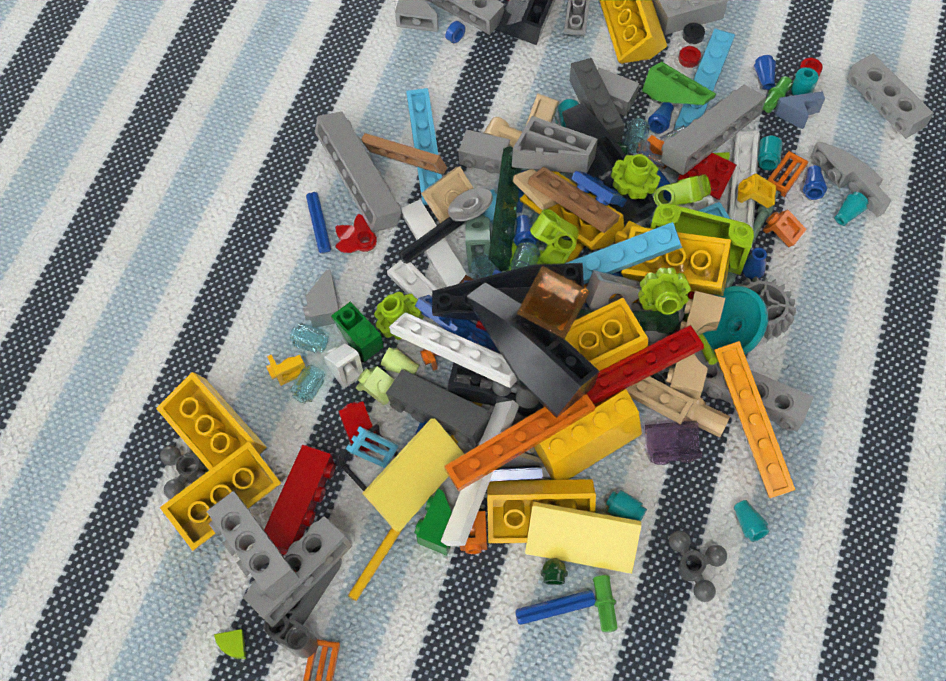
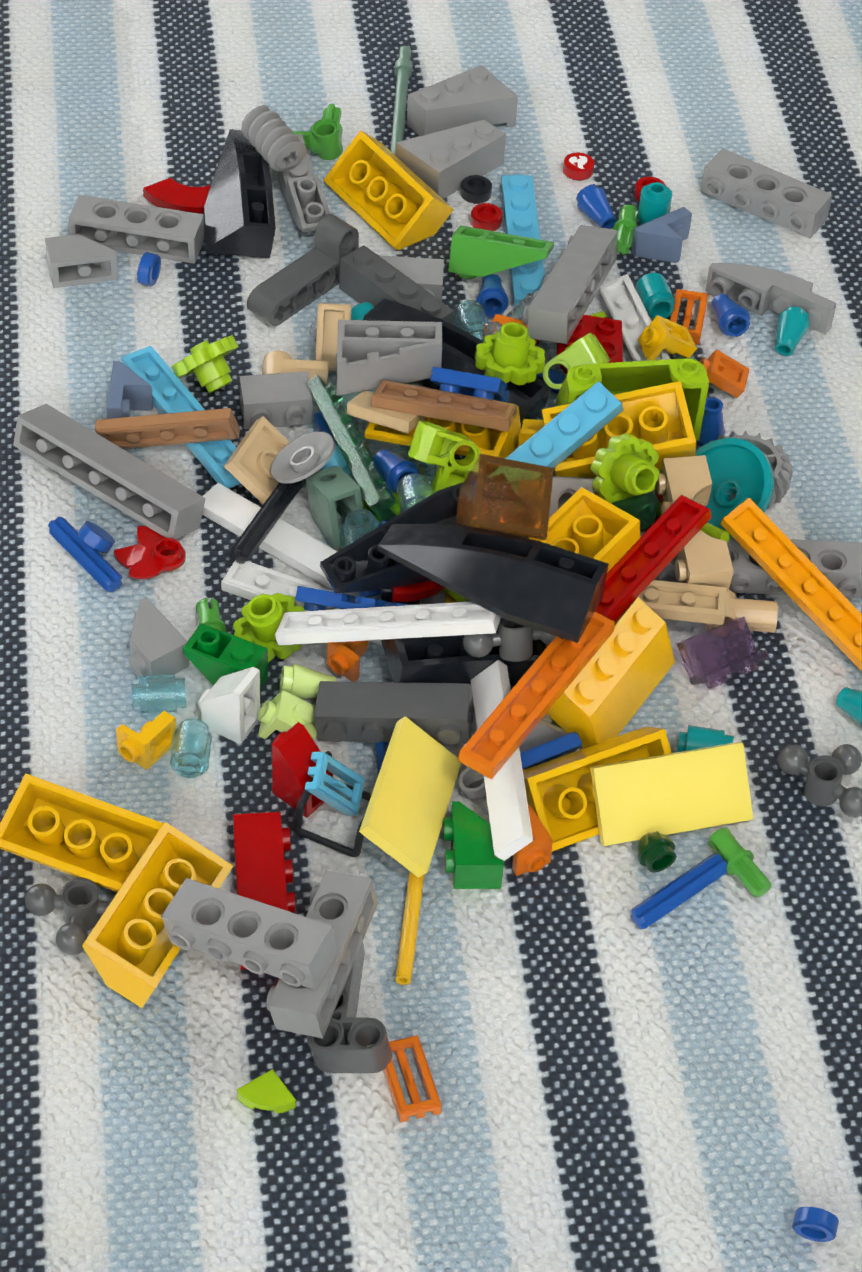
camera: 30 degrees left, 15 degrees down
(328, 213) = (96, 537): none -> blue tile
(364, 300) = (208, 616): none -> bright green pin
(393, 117) = (127, 392): none -> sand blue slope
(454, 113) = (208, 363): none -> lime plant
(548, 67) = (307, 276): none -> dark grey beam
(771, 35) = (578, 166): none -> red tile

